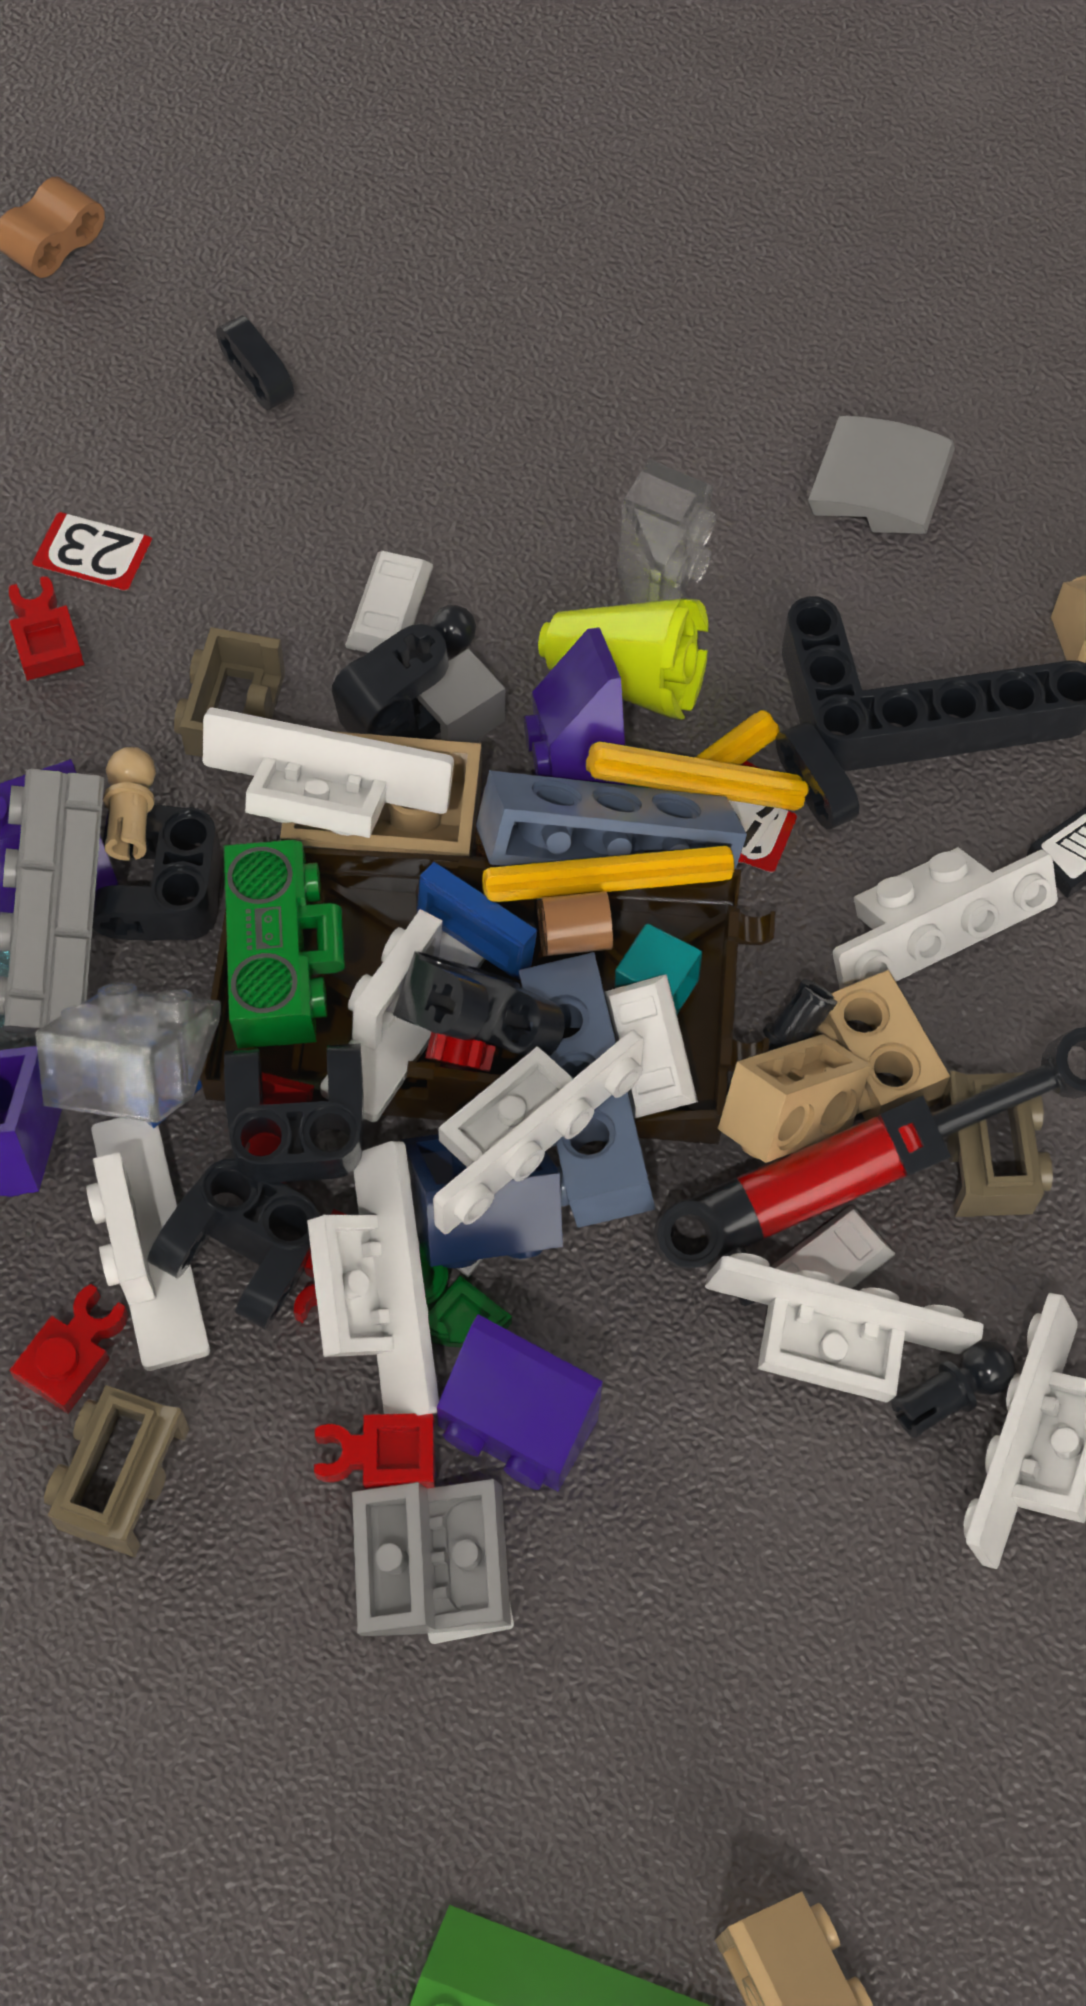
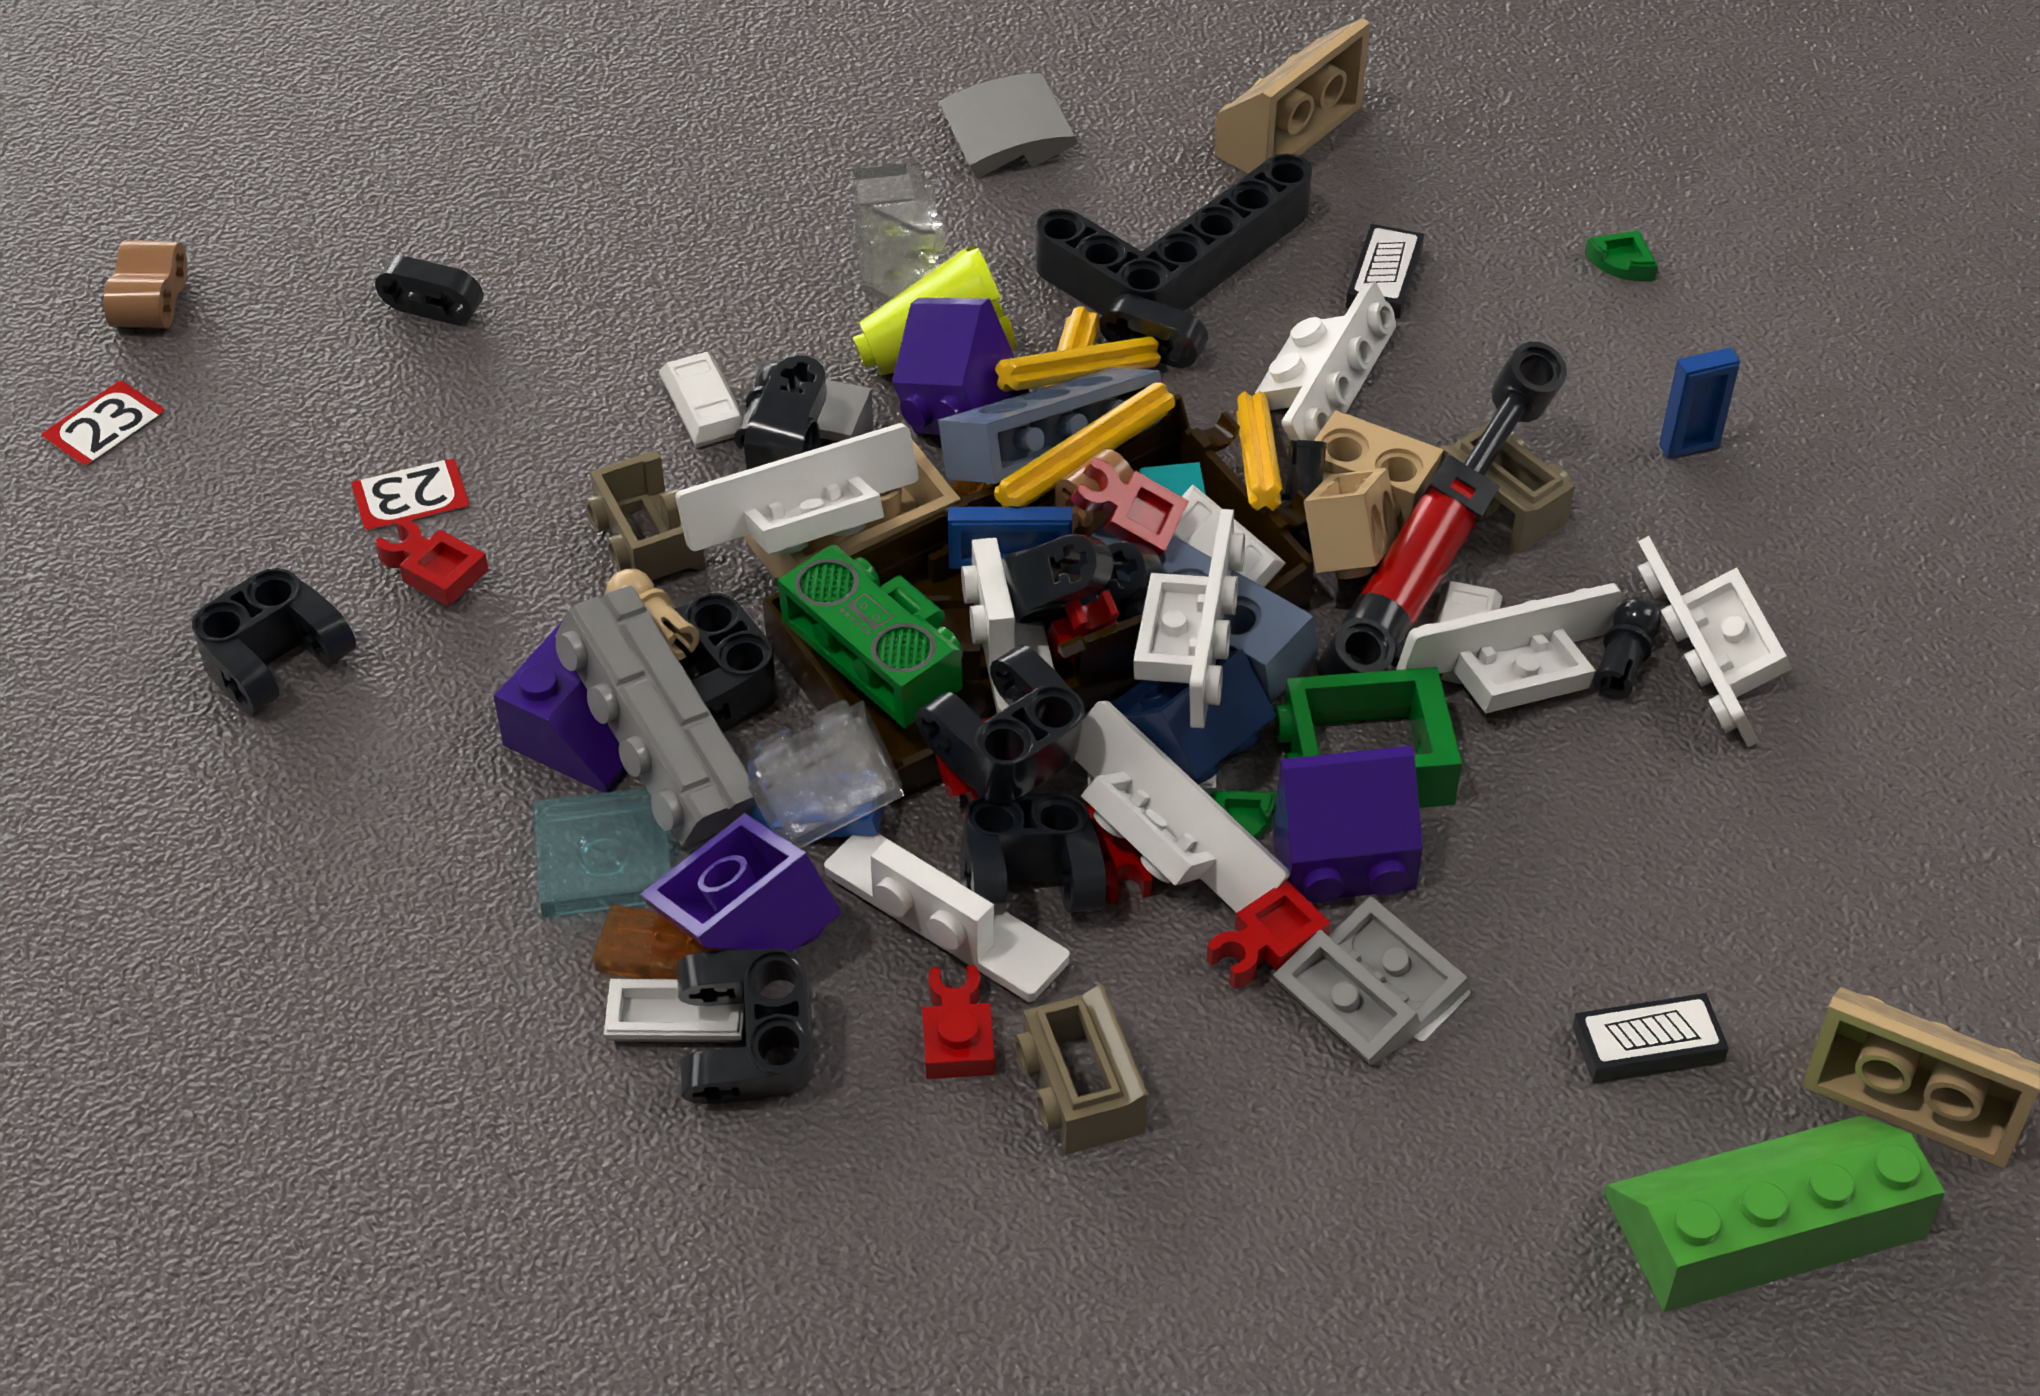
camera: 35 degrees left, 15 degrees down
(583, 976) = (1137, 509): none -> plate
(617, 1793) = (1650, 1037): none -> tile
(654, 1403) = (1374, 697): none -> green window
(782, 967) = (1258, 451): none -> yellow axle

